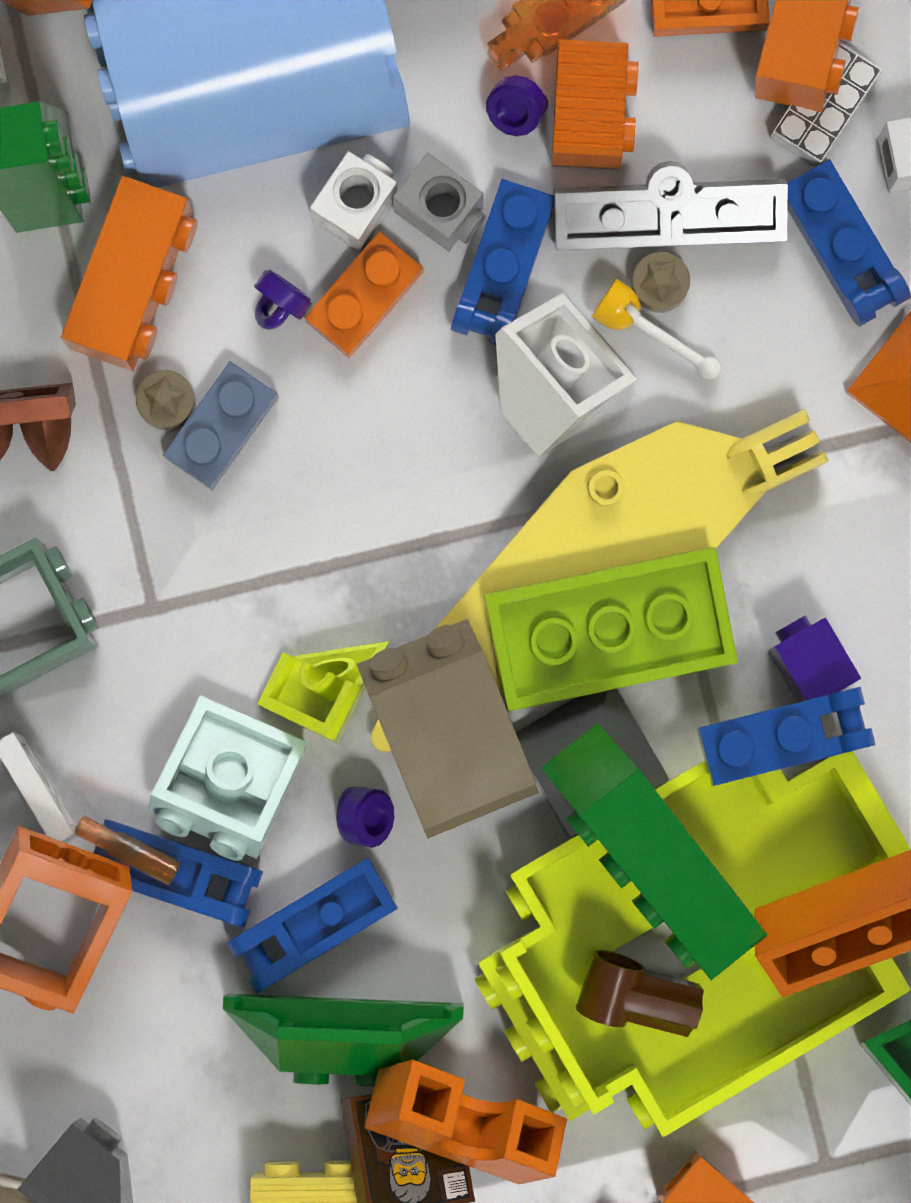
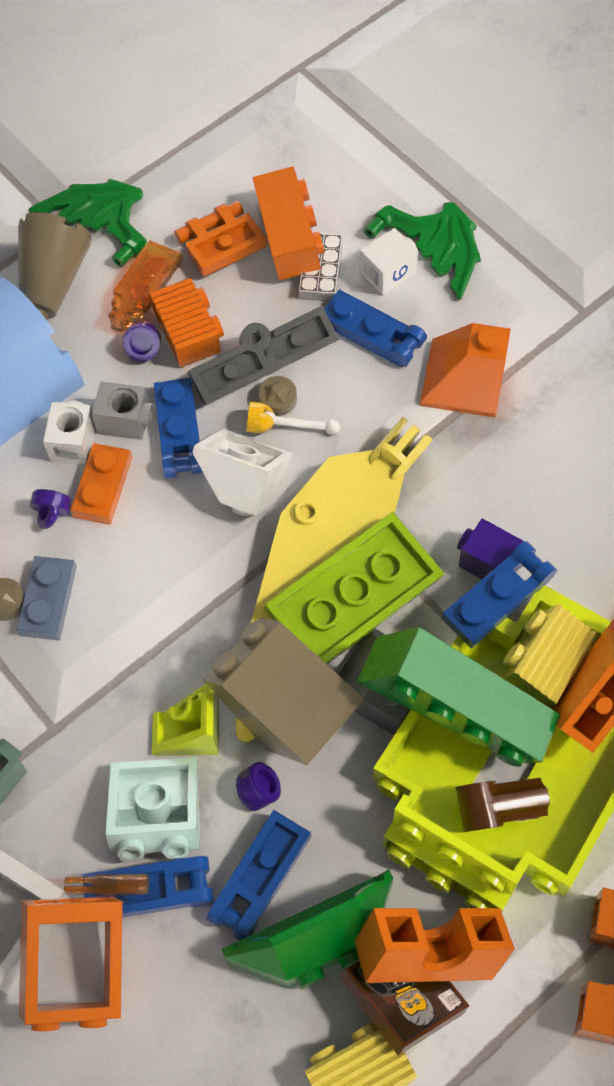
camera: 25 degrees left, 20 degrees down
(799, 848) = (548, 654): none -> light yellow brick

